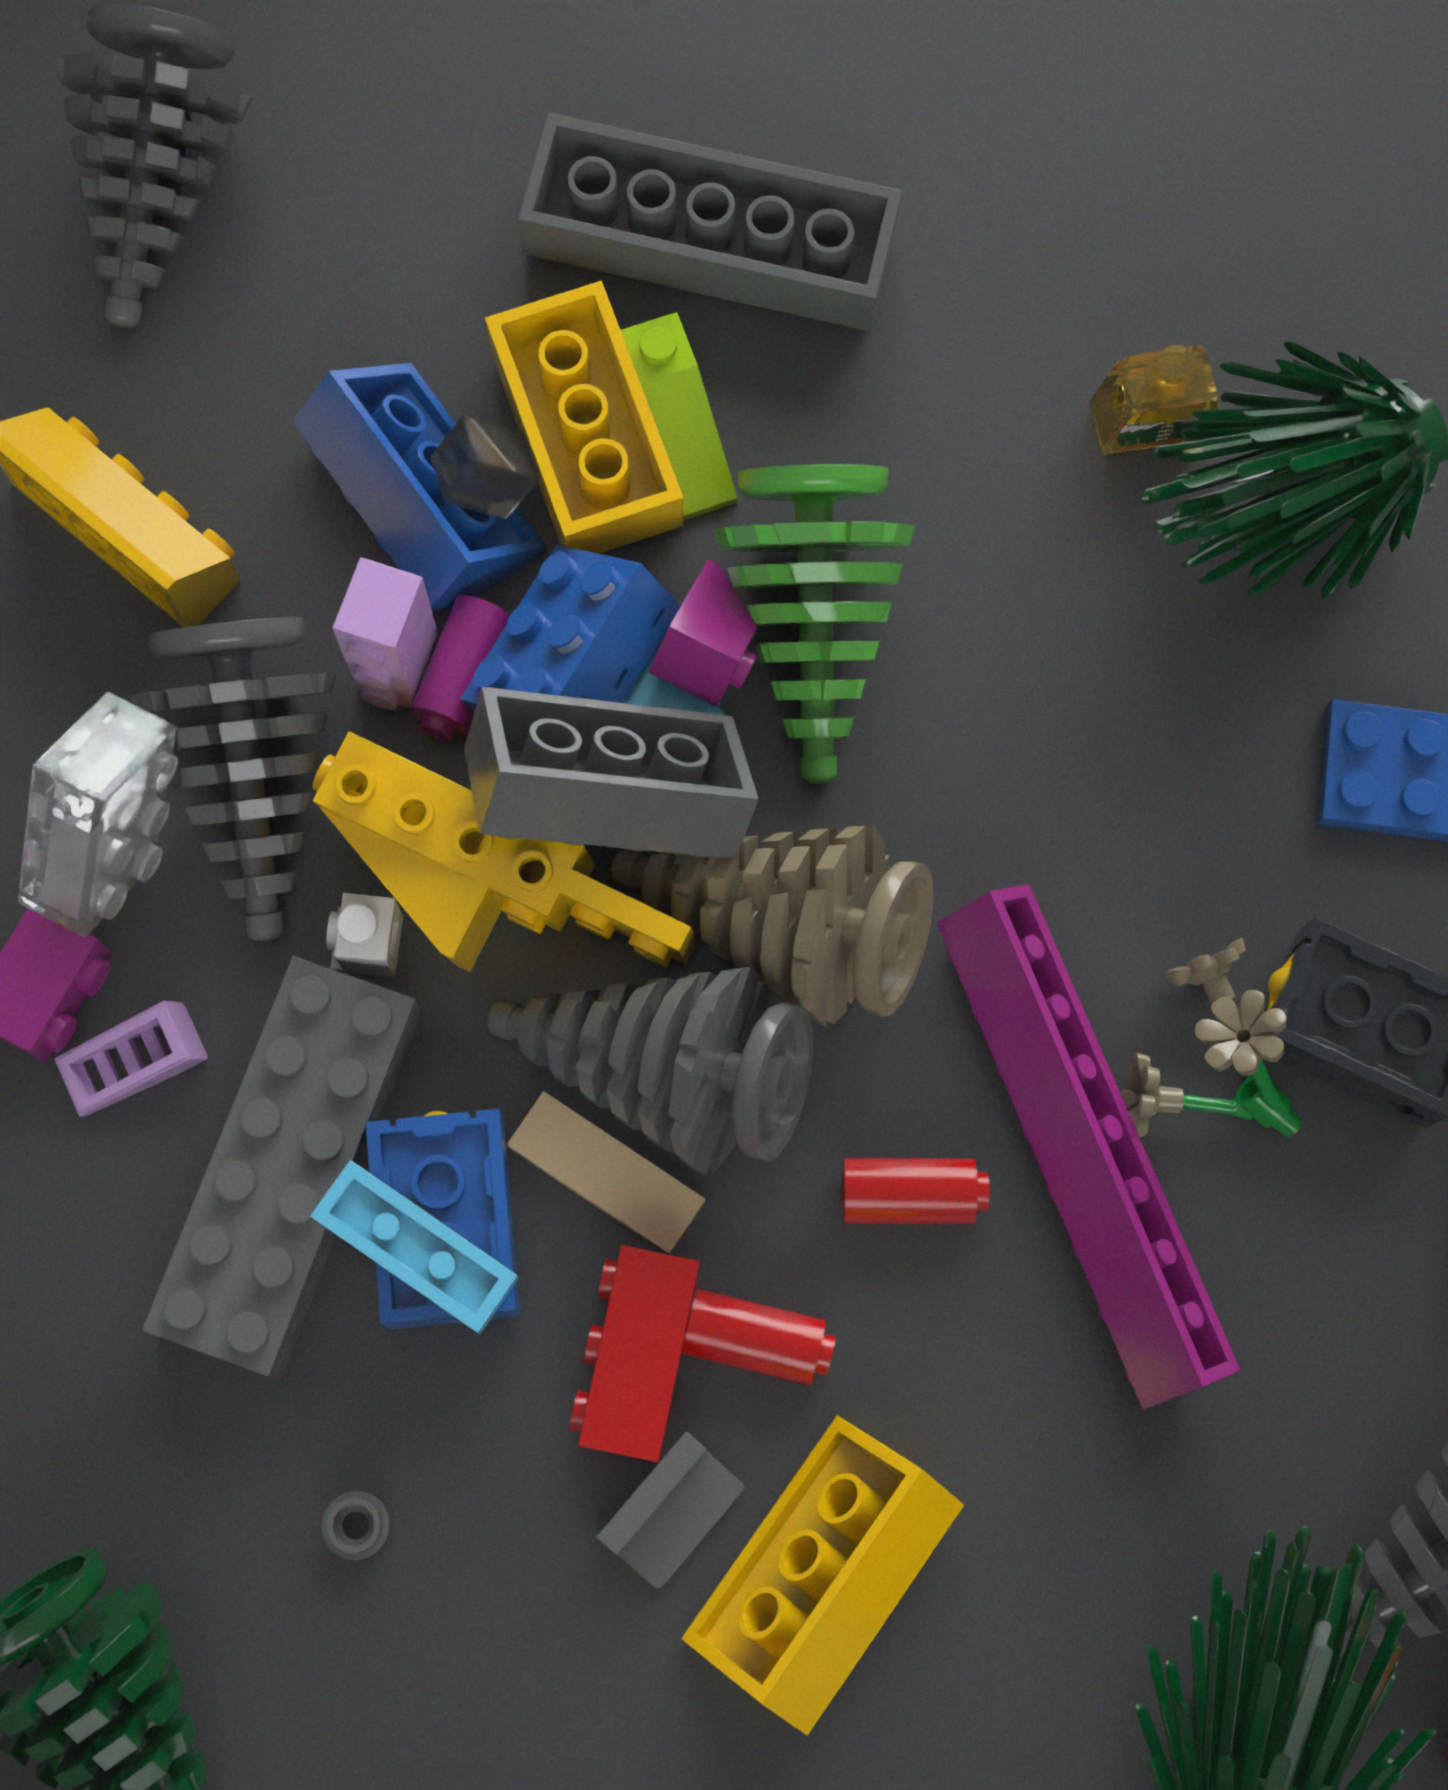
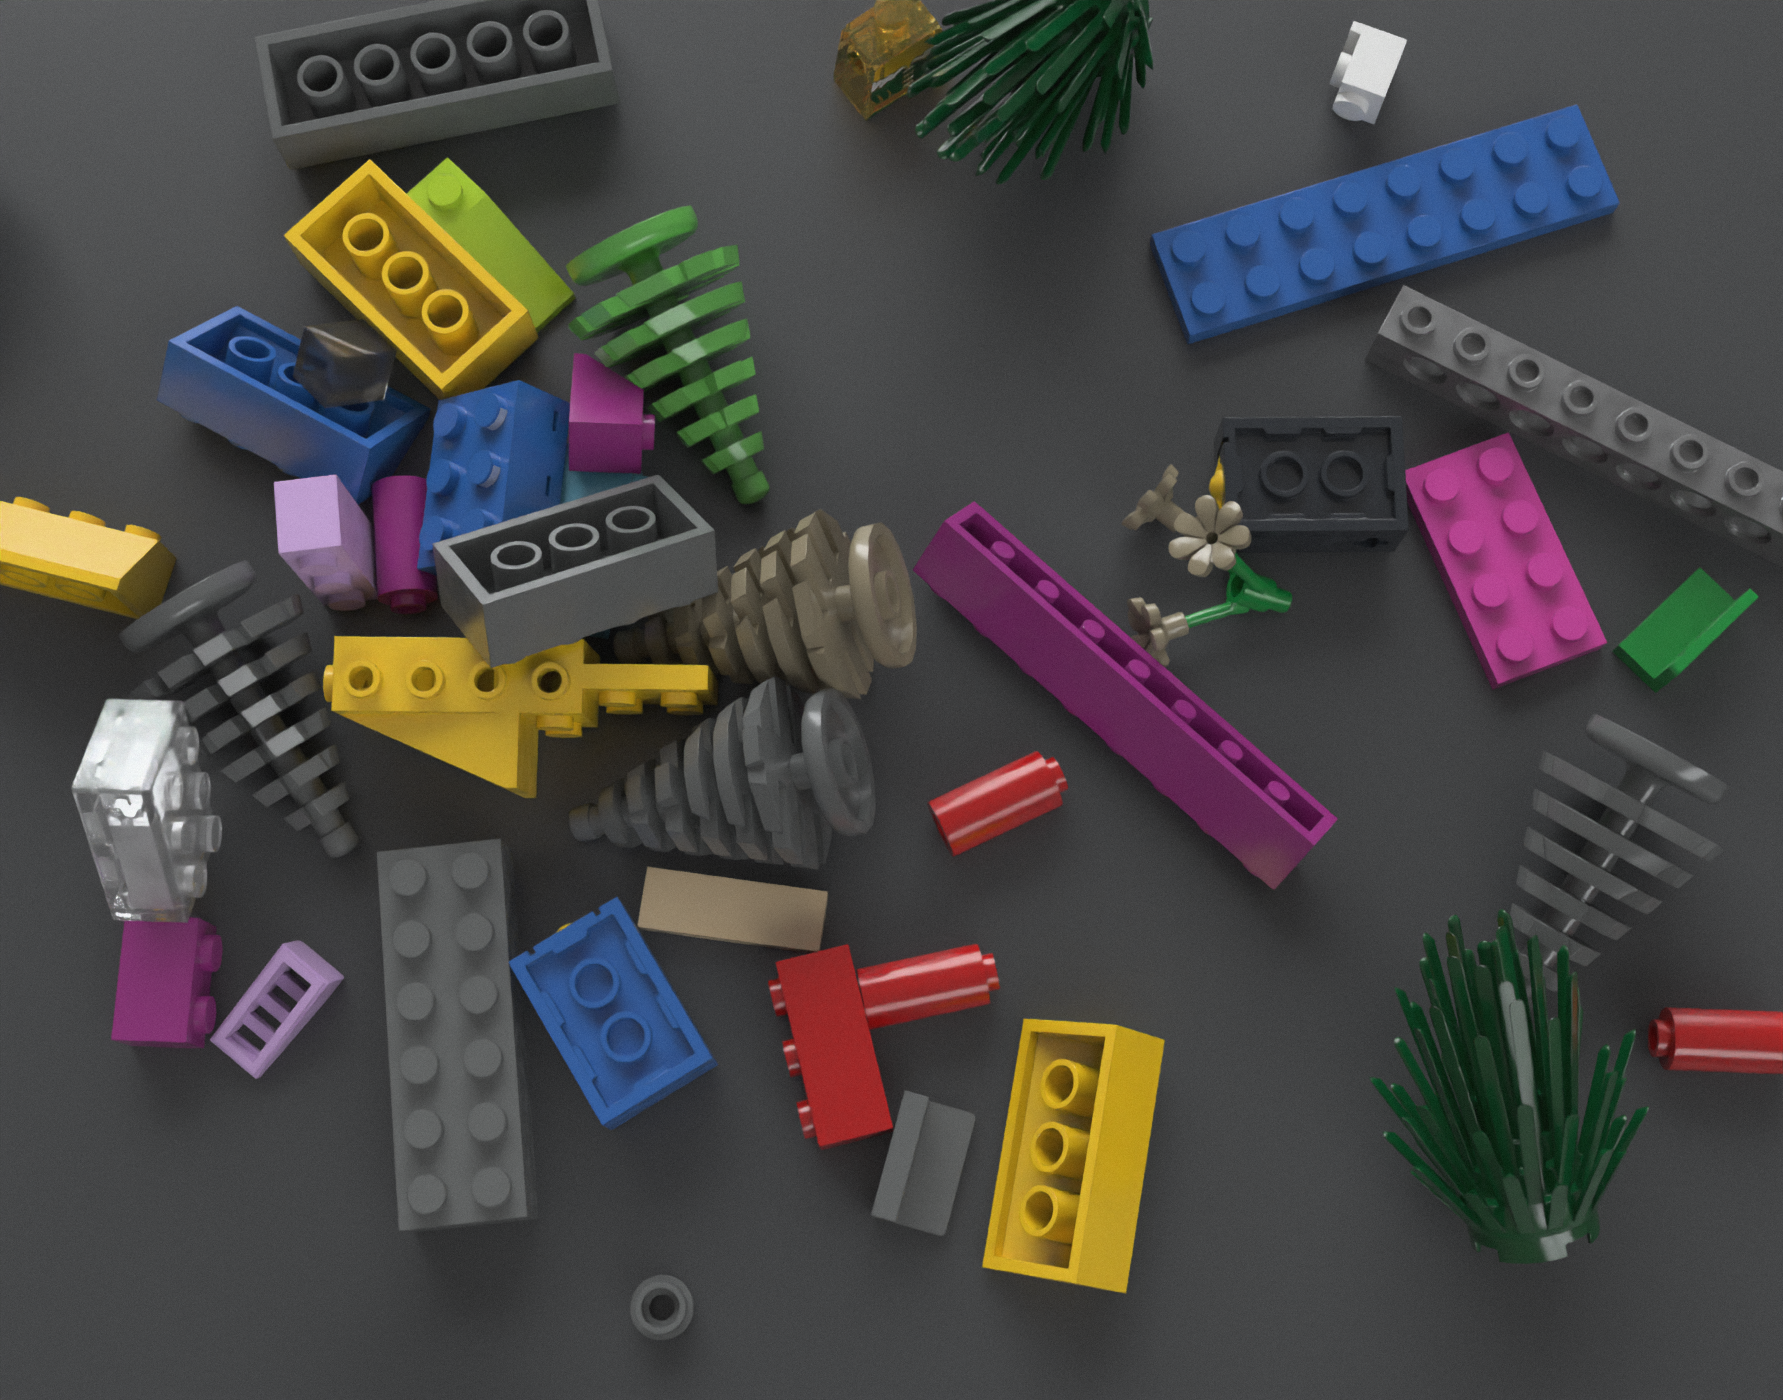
camera: 20 degrees left, 0 degrees up
(365, 935) = (431, 807): white brick -> none
(415, 1247) = (600, 1045): medium azure plate -> none

